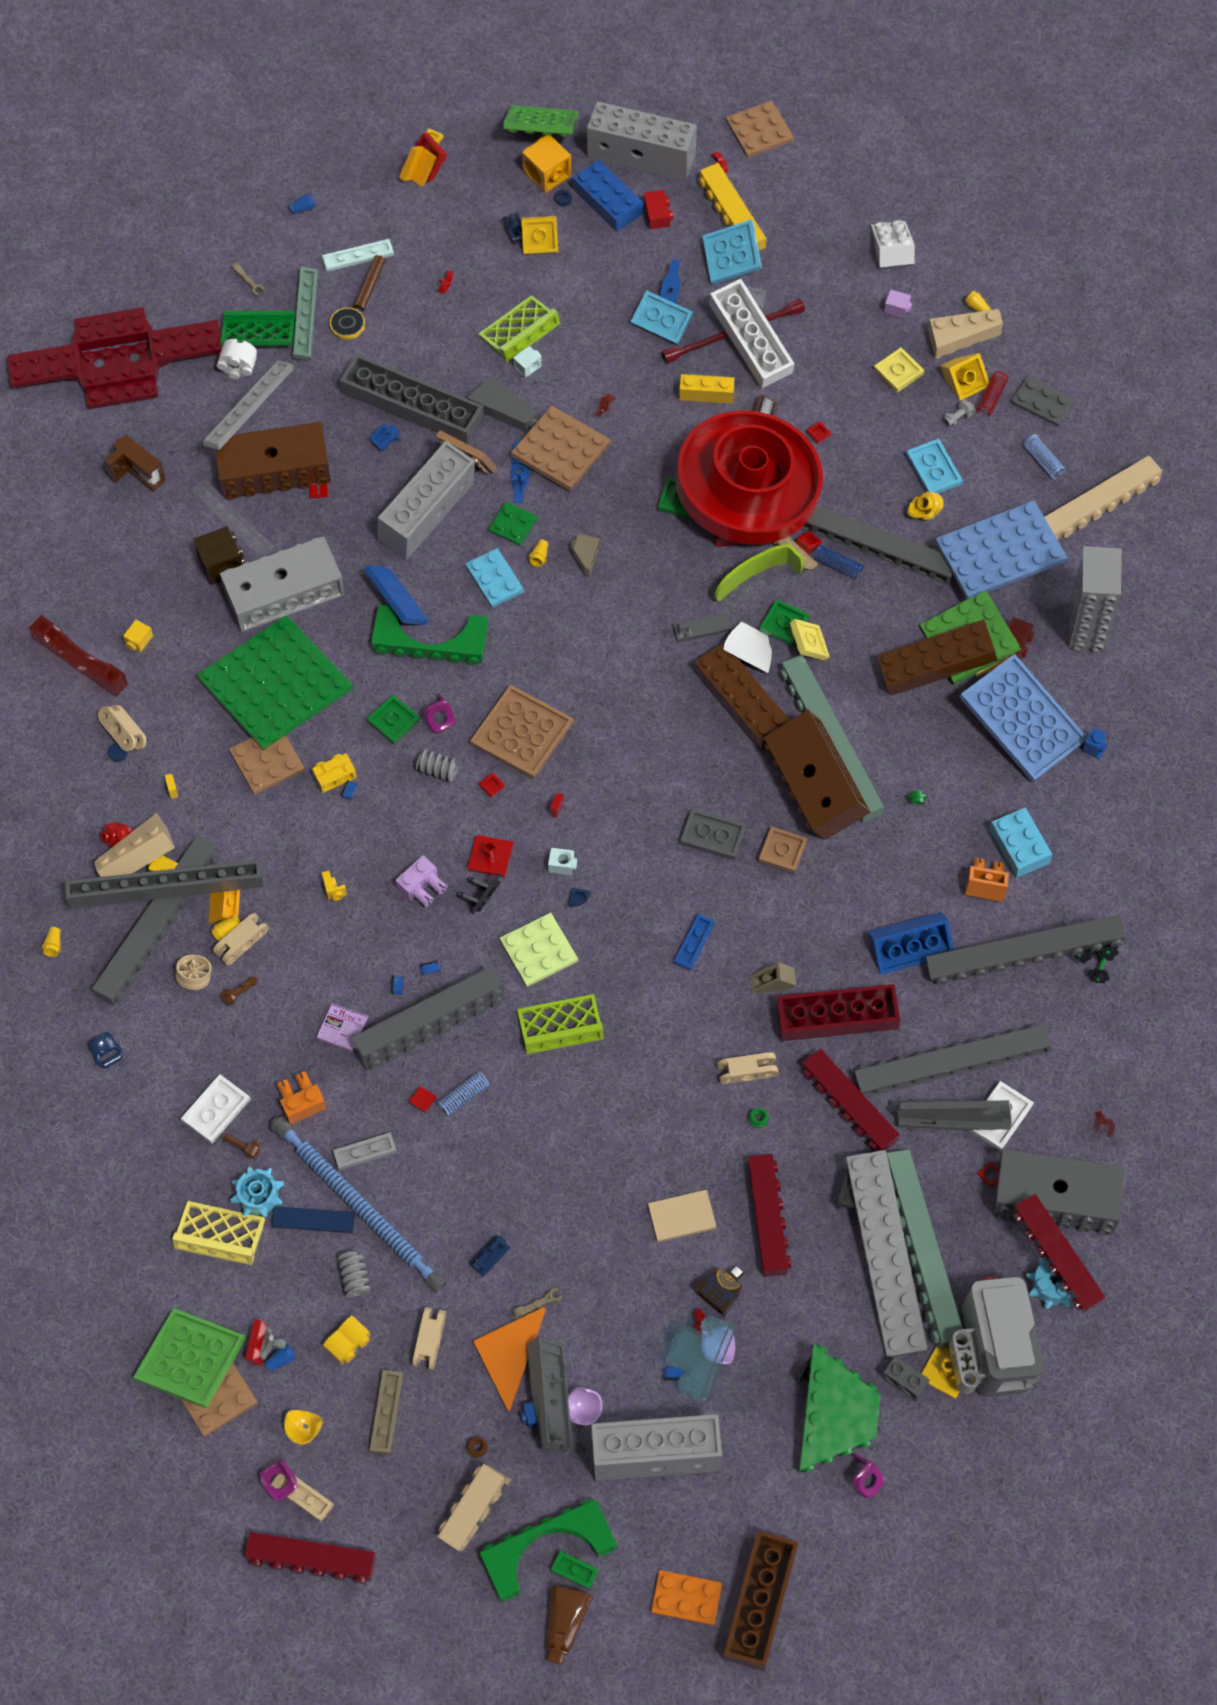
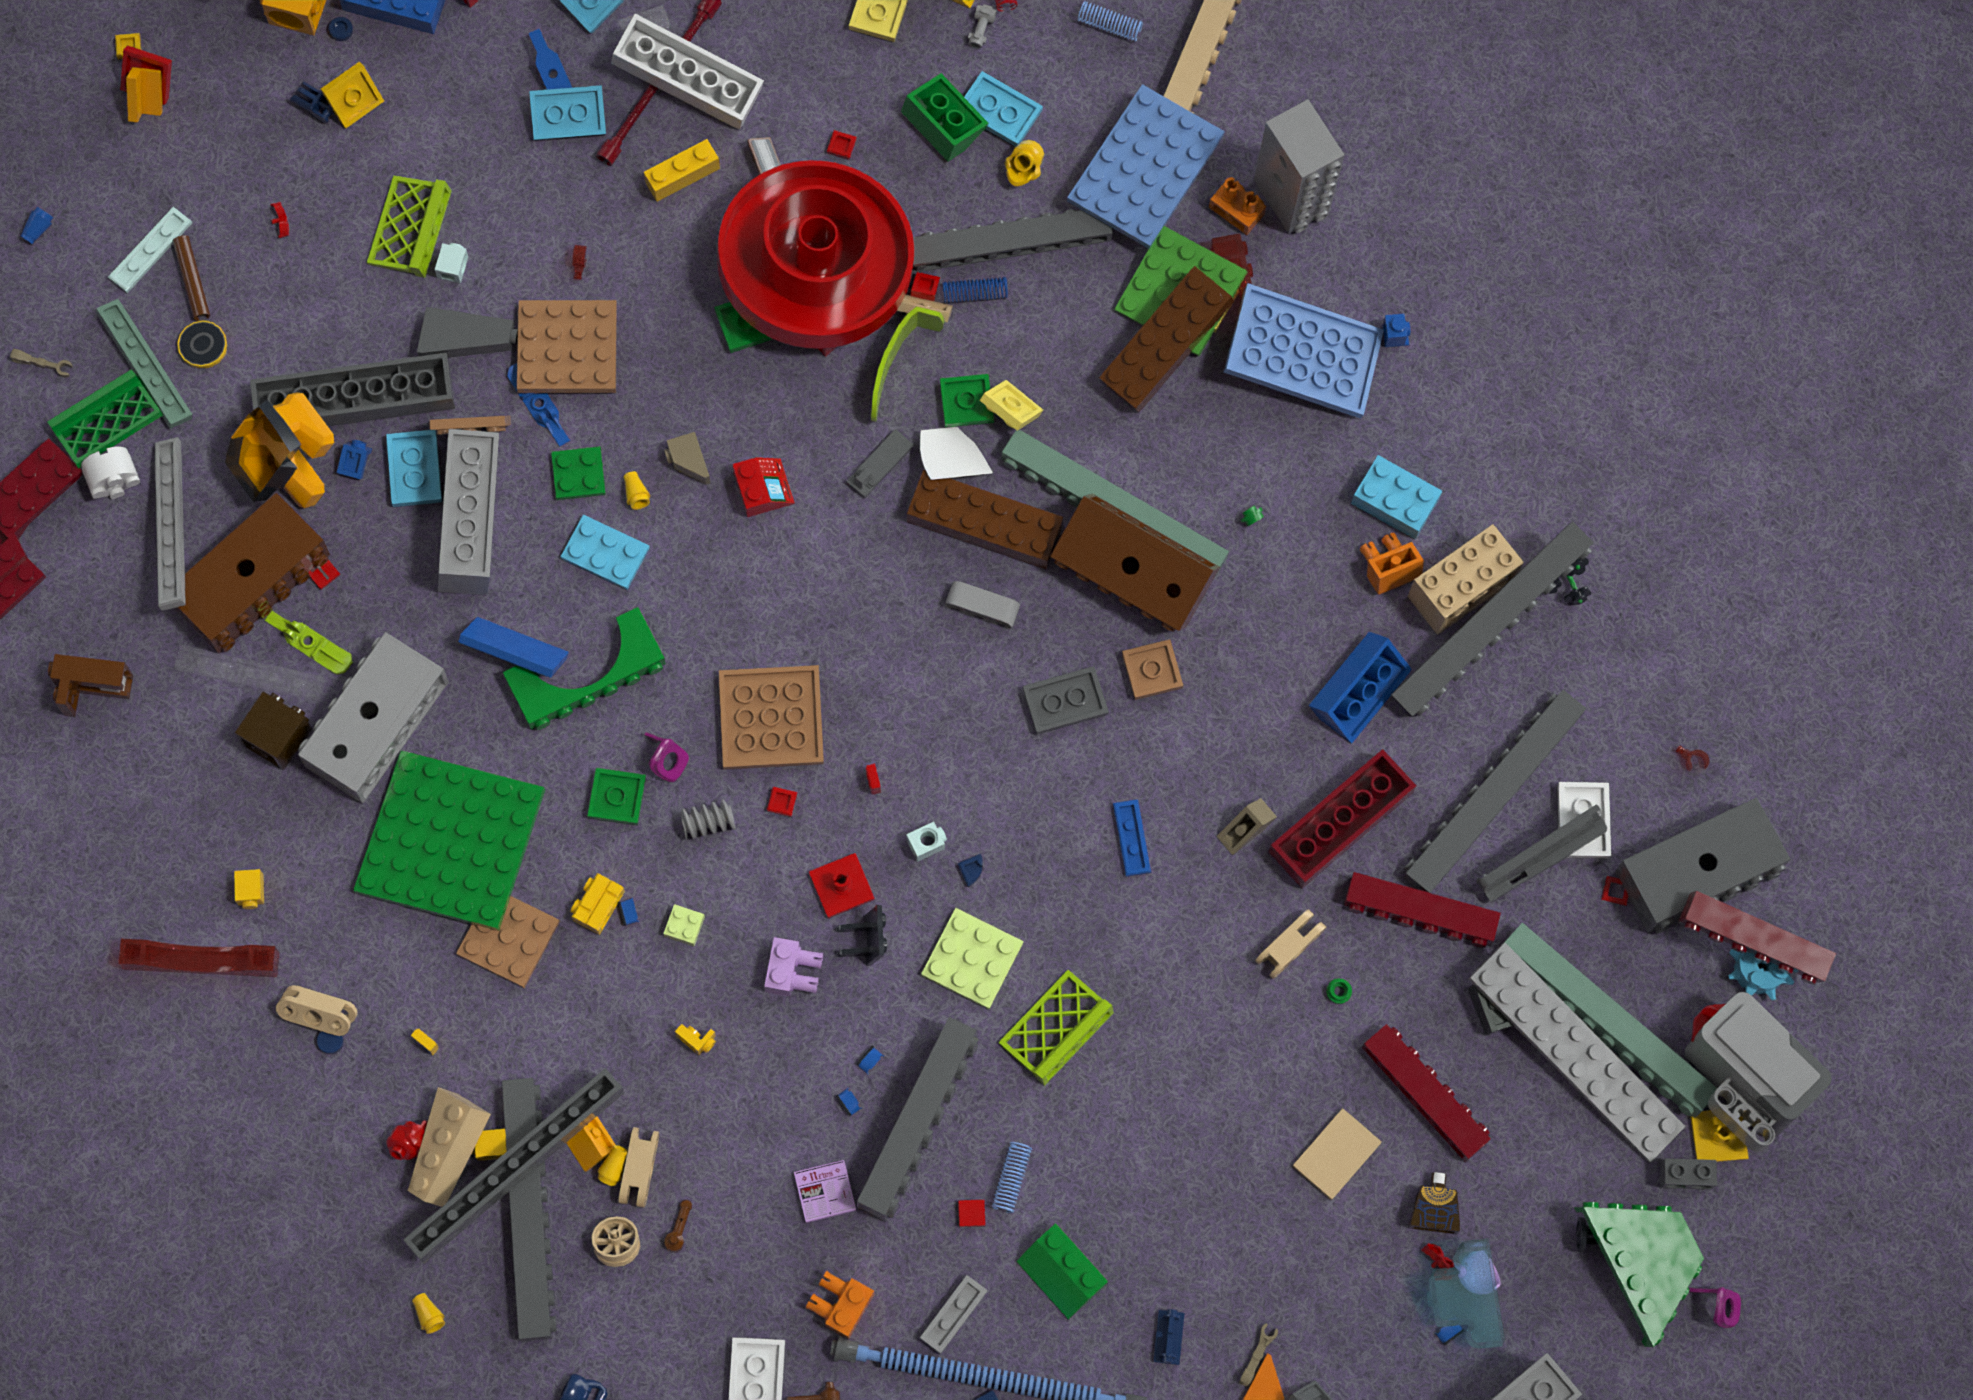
camera: 40 degrees left, 10 degrees up
(284, 531) = (321, 649): none -> lime piece
(328, 396) = (267, 452): none -> light orange piece
(376, 818) = (684, 925): none -> yellowish green piece
(412, 459) = (414, 468): none -> medium azure plate
(451, 1170) = (1062, 1271): none -> green slope
(619, 595) = (762, 485): none -> red slope
(704, 745) = (982, 603): none -> light grey beam
(893, 450) = (943, 116): none -> green slope
(1025, 912) = (1464, 579): none -> tan brick
(1046, 609) = (1237, 206): none -> orange brick

